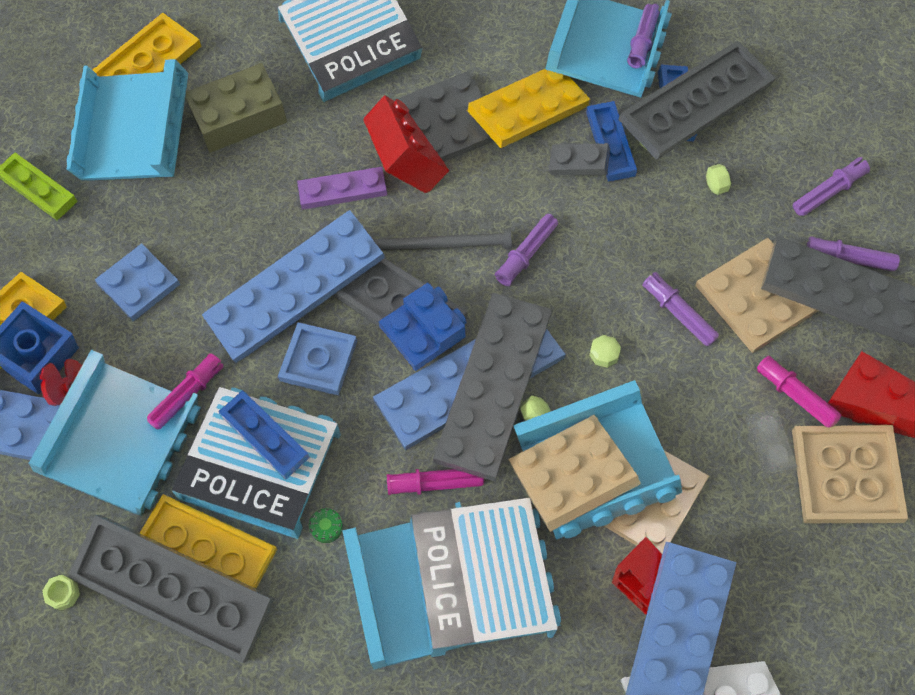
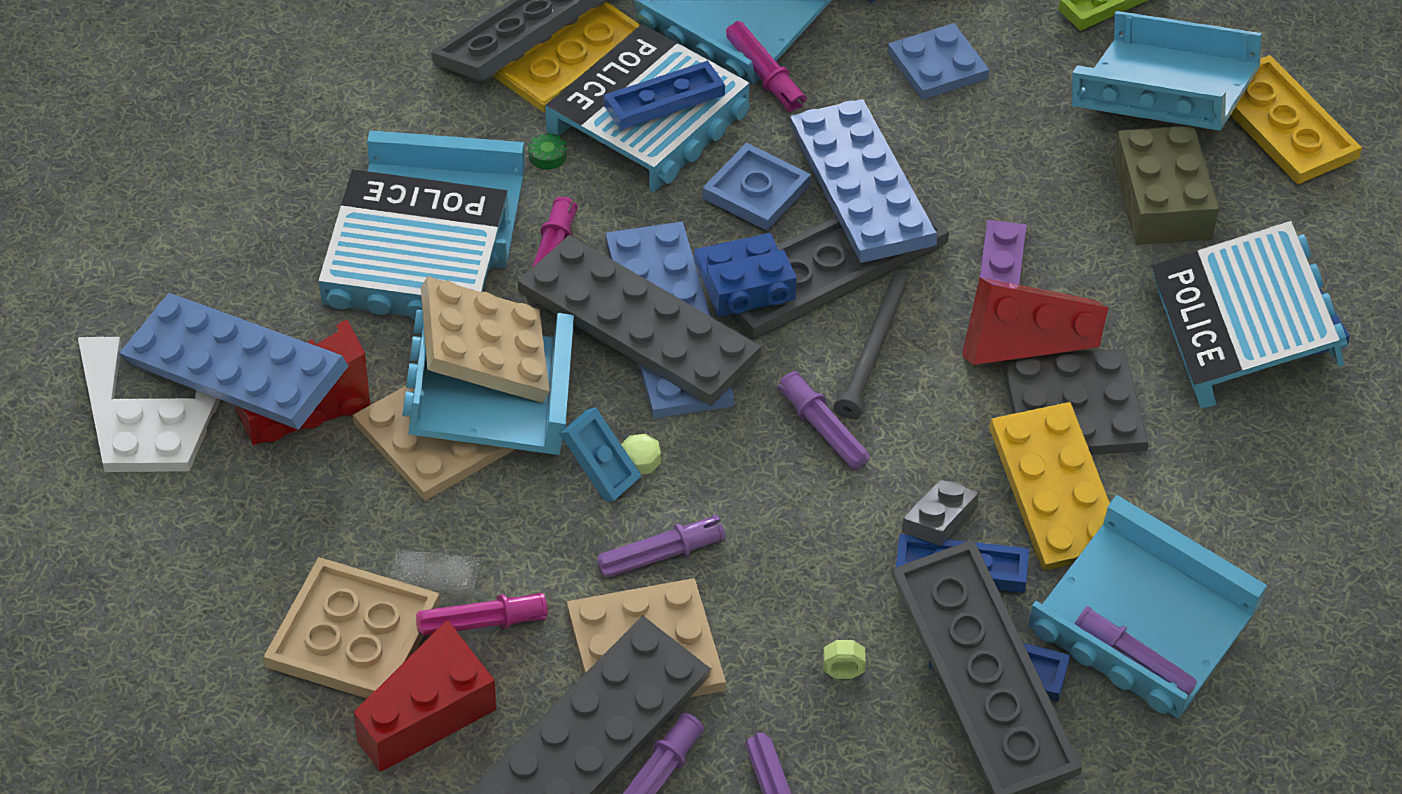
camera: 105 degrees right, 15 degrees down
(534, 407) = (588, 356): yellowish green tile -> none
(632, 364) = (600, 454): none -> dark azure plate

